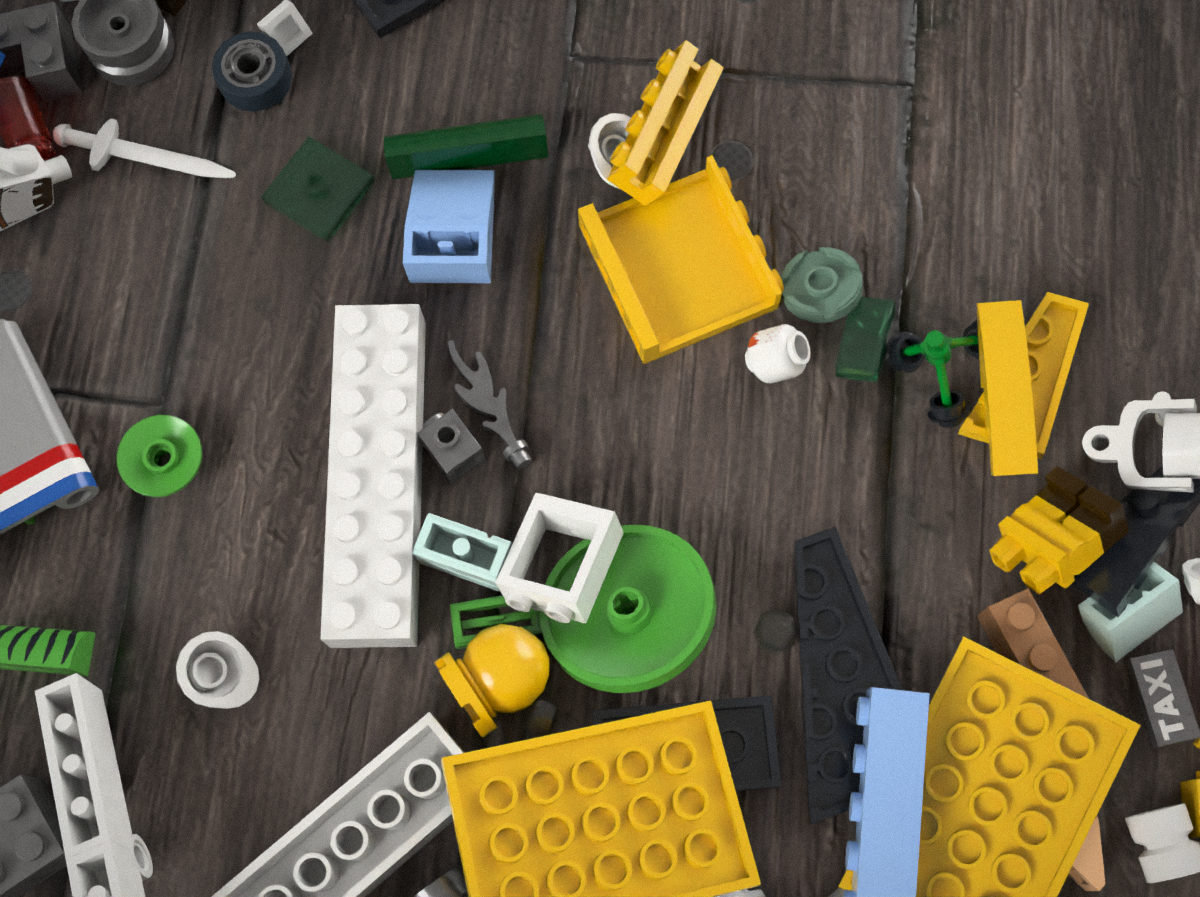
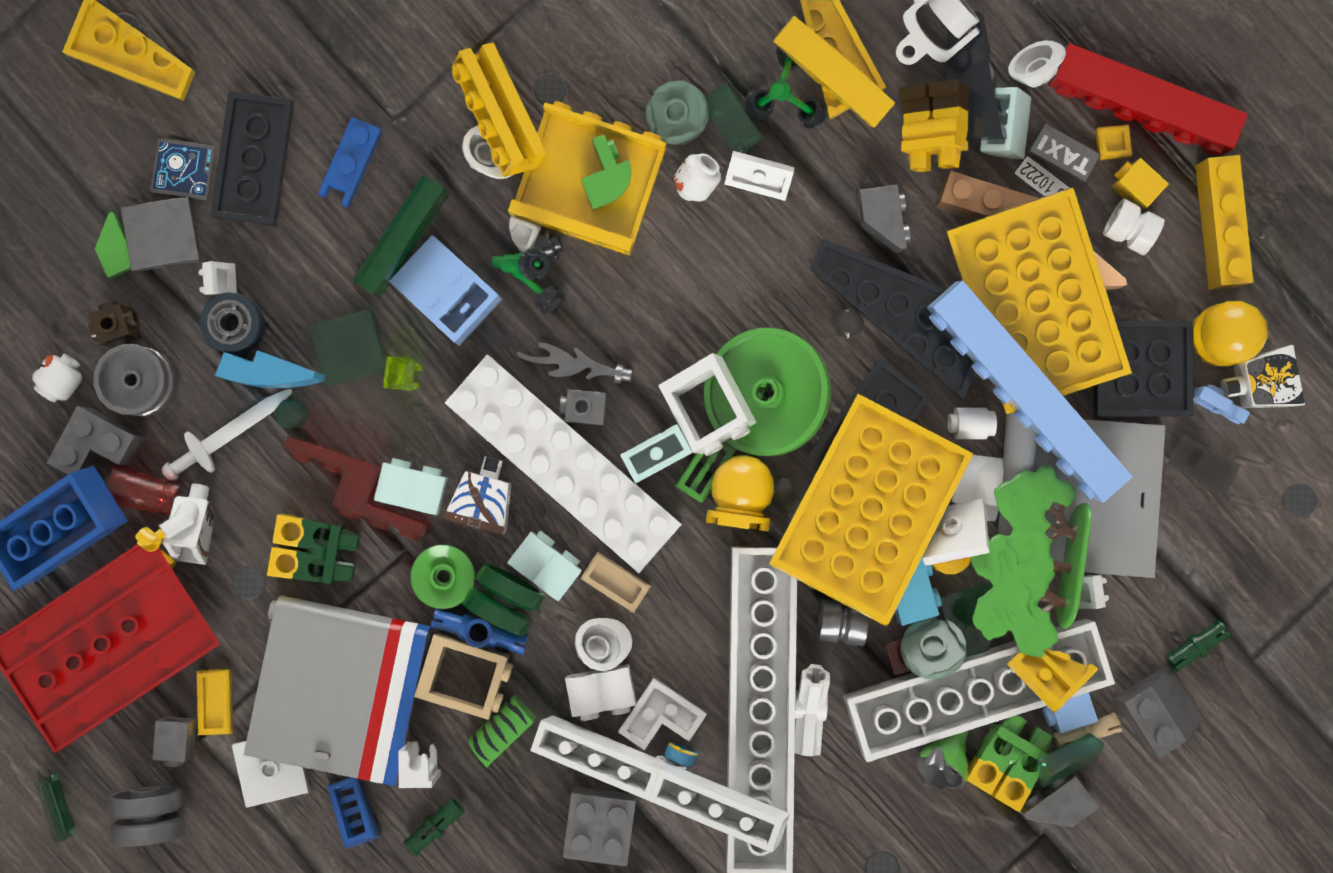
camera: 55 degrees left, 15 degrees up
(55, 524) = (432, 666): none -> tan window
(90, 328) = (322, 554): none -> dark green hips
(141, 555) = (463, 628): none -> blue pin
(162, 862) = (681, 754): none -> dark azure tile
(164, 716) = (601, 691): none -> white brick
(179, 529) = (502, 603): none -> dark green wheel
(184, 306) = (357, 488): none -> clear red bracket
(199, 794) = (657, 707): none -> white plate
(209, 191) = (291, 414): none -> clear green tile
(227, 353) = (411, 488): none -> light aqua brick
(229, 133) = (266, 372): none -> dark azure slope
(255, 544) = (545, 565): none -> light aqua brick
(271, 427) = (482, 499): none -> torso
(297, 632) = (615, 582): none -> tan tile
(331, 249) = (400, 373): none -> clear neon green tile
(499, 49) = (351, 160): none -> blue hinge
(540, 264) = (532, 265): none -> black plant
(572, 250) = (523, 233): none -> white tile
(696, 278) = (612, 181): none -> bright green brick
(794, 859) = (972, 423): none -> white brick
(837, 411) = (759, 175): none -> white plate
(915, 565) = (881, 216): none -> flat silver slope
(1112, 689) = (1039, 177): none -> white sticker

